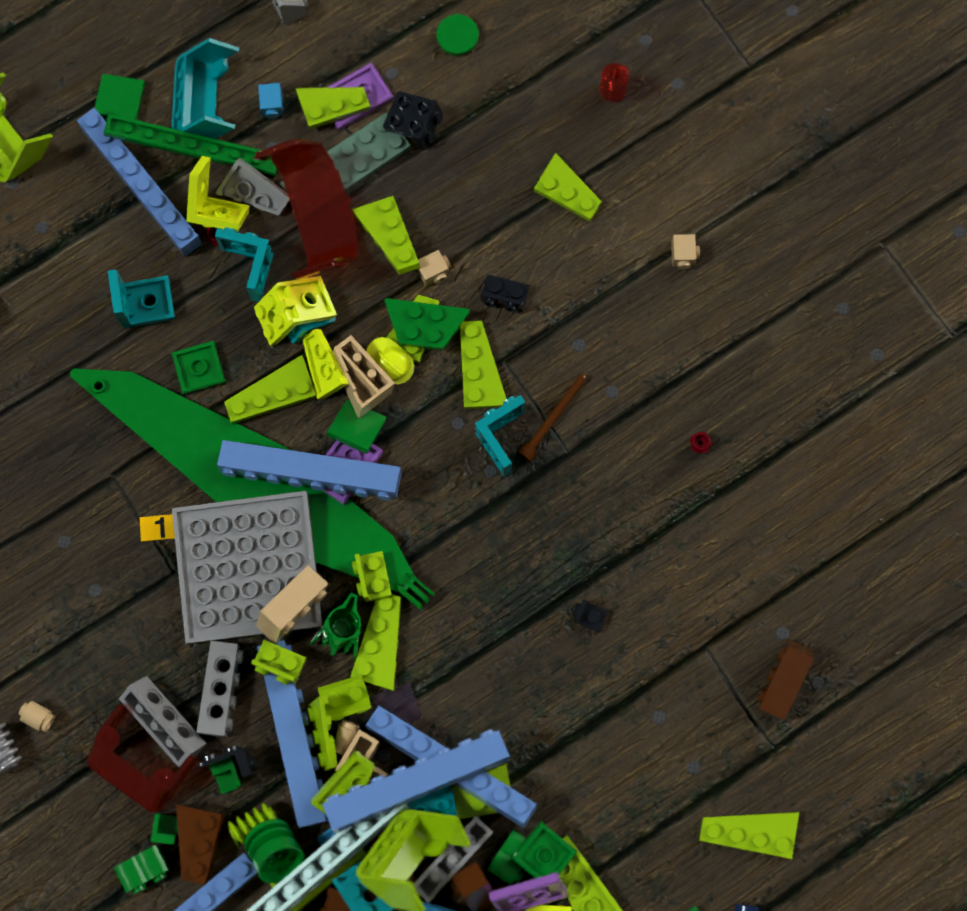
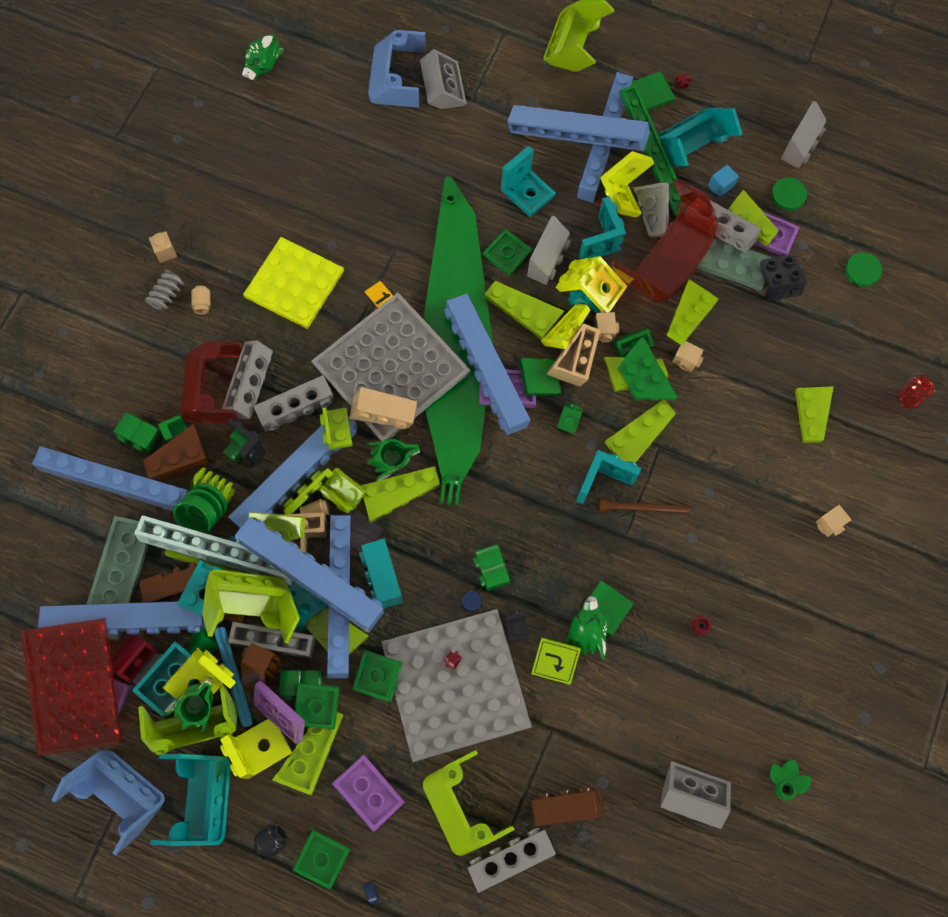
camera: 50 degrees right, 5 degrees down
(81, 607) = (293, 282): none -> neon yellow plate
(115, 204) = (579, 127): none -> medium blue brick
(130, 58) = (683, 81): none -> dark red plate
(231, 327) = (549, 252): none -> light grey slope
(327, 127) = (735, 229): none -> light grey brick
(328, 46) = (789, 194): none -> green tile
(347, 324) = (607, 325): none -> tan brick
(373, 576) = (440, 453): lime bracket -> none
(377, 314) = (625, 343): none -> green slope
(391, 359) = (603, 371): neon yellow piece -> none
(417, 425) = (570, 417): none -> green bracket
(456, 712) = (380, 573): none -> teal brick
(504, 293) = (706, 416): black bracket -> none
(518, 602) = (491, 567): none -> green brick
(537, 642) = (471, 601): none -> dark blue tile
(551, 779) = (377, 676): none -> green tile
(584, 697) = (452, 660): none -> dark red plate
(606, 710) = (462, 705): none -> light grey plate
(626, 519) = (612, 605): none -> green tile
(638, 553) = (586, 630): none -> green piece
(646, 600) = (556, 661): none -> lime piece
(654, 856) = (368, 793): none -> medium lavender tile
(723, 792) = (449, 813): none -> lime windscreen
(756, 833) = (436, 863): lime wing -> none
(809, 728) = (543, 851): none -> light grey brick
(848, 555) = (696, 795): none -> light grey slope
(886, 460) = (789, 777): none -> green plate

